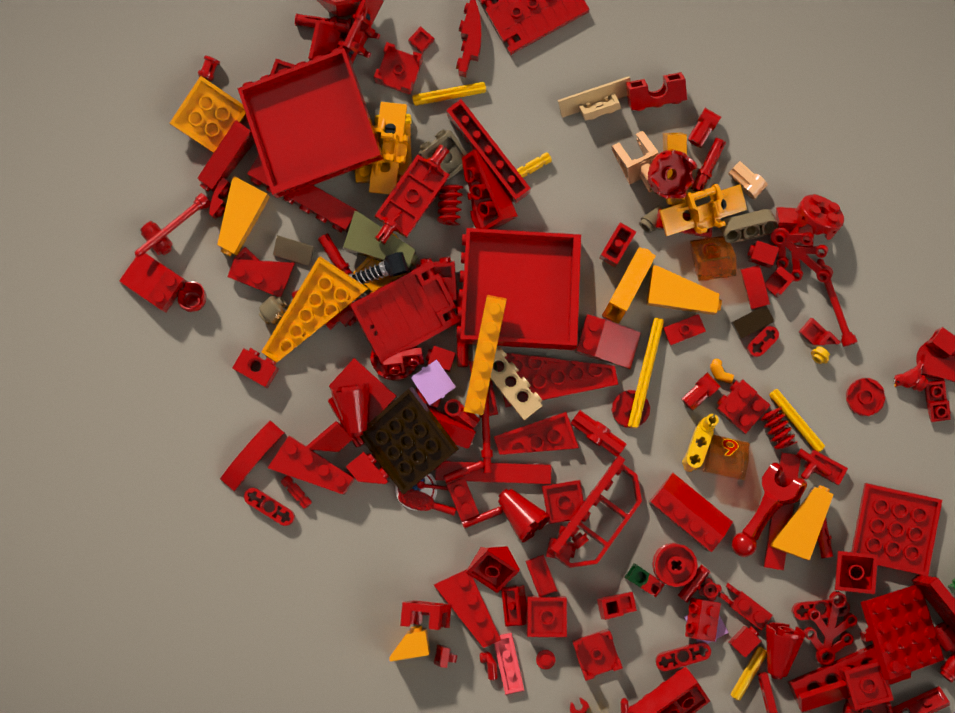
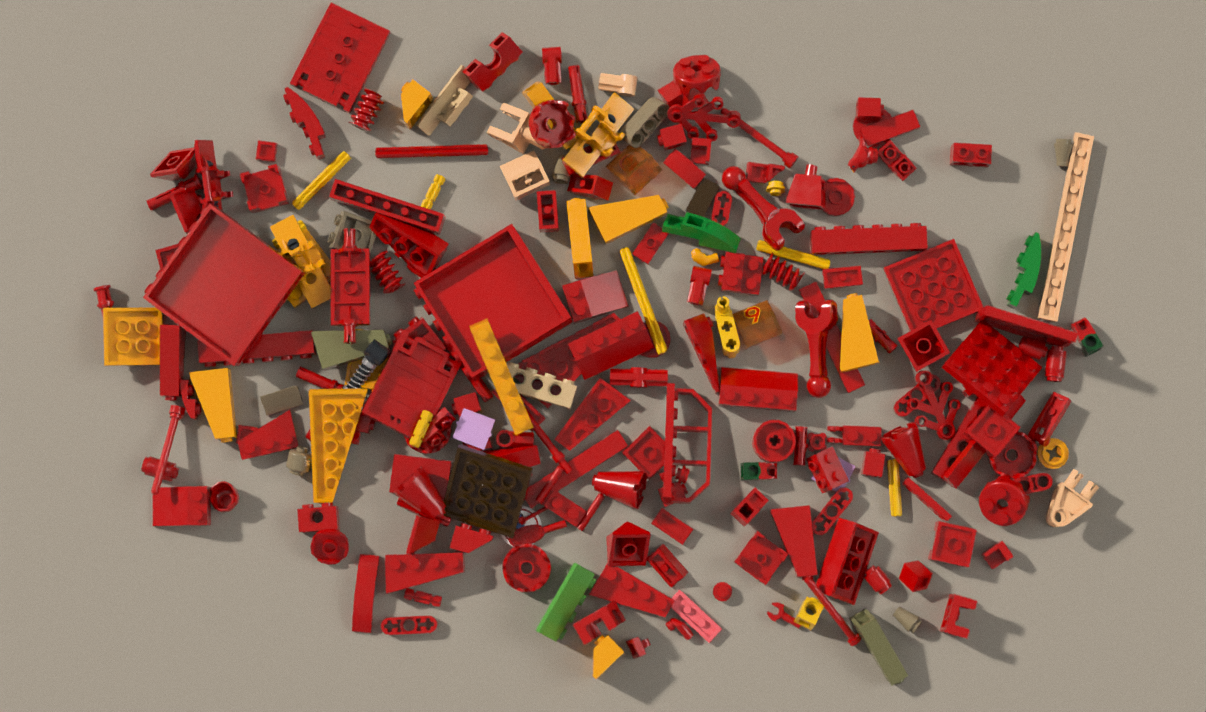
camera: 35 degrees left, 0 degrees up
(249, 396) = (329, 546): none -> red tile
(383, 527) = (540, 568): none -> red plate
(389, 352) = (421, 428): none -> yellow axle
(410, 577) = (565, 601): none -> bright green slope
(524, 62) = (367, 110): none -> red piece
(546, 616) = (699, 555): red panel -> none
(556, 131) = (431, 151): none -> red axle
(570, 80) = (414, 102): none -> light orange slope
(593, 391) = (610, 345): none -> red slope
(619, 203) = (525, 175): none -> light nougat slope
(639, 657) = (796, 534): none -> red slope
(667, 248) = (590, 186): none -> red slope
(672, 438) = (701, 337): none -> red wedge
(738, 350) = (707, 231): none -> green slope
(799, 372) = (770, 216): none -> red piece
(813, 463) = (830, 281): red piece -> none
(846, 375) = (807, 190): none -> red torso
(869, 452) = (868, 240): none -> red brick

